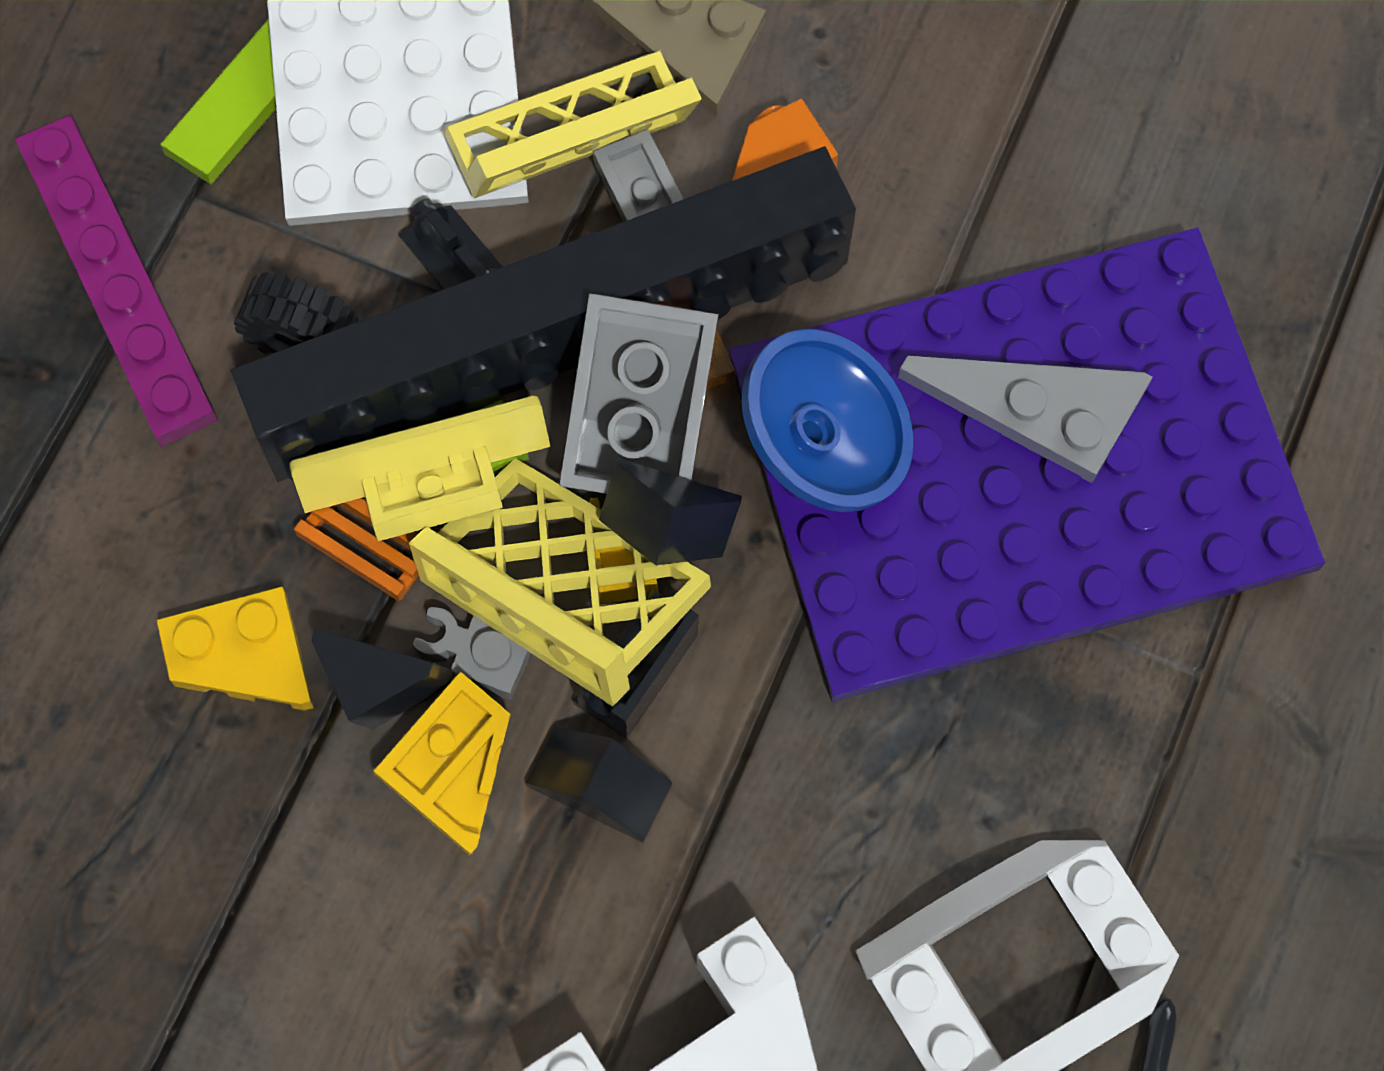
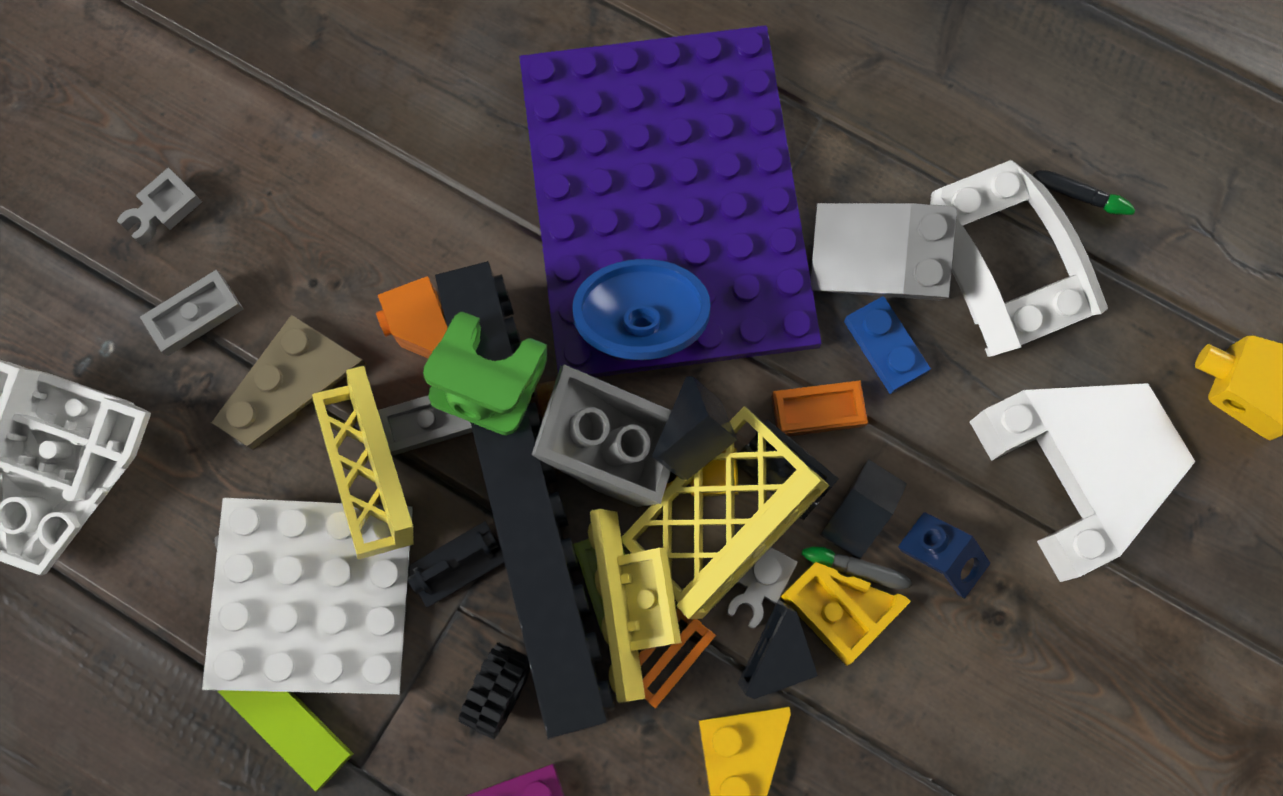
camera: 80 degrees left, 5 degrees up
(504, 821) = (857, 568): none -> dark grey piece
(548, 894) = (945, 551): none -> dark blue bracket
(663, 220) = (478, 388): none -> bright green piece
(737, 707) = (819, 408): none -> orange tile
(849, 794) = (887, 345): none -> blue plate
(986, 767) = (884, 249): none -> light grey slope
(1051, 410) = (643, 168): light grey wing -> none

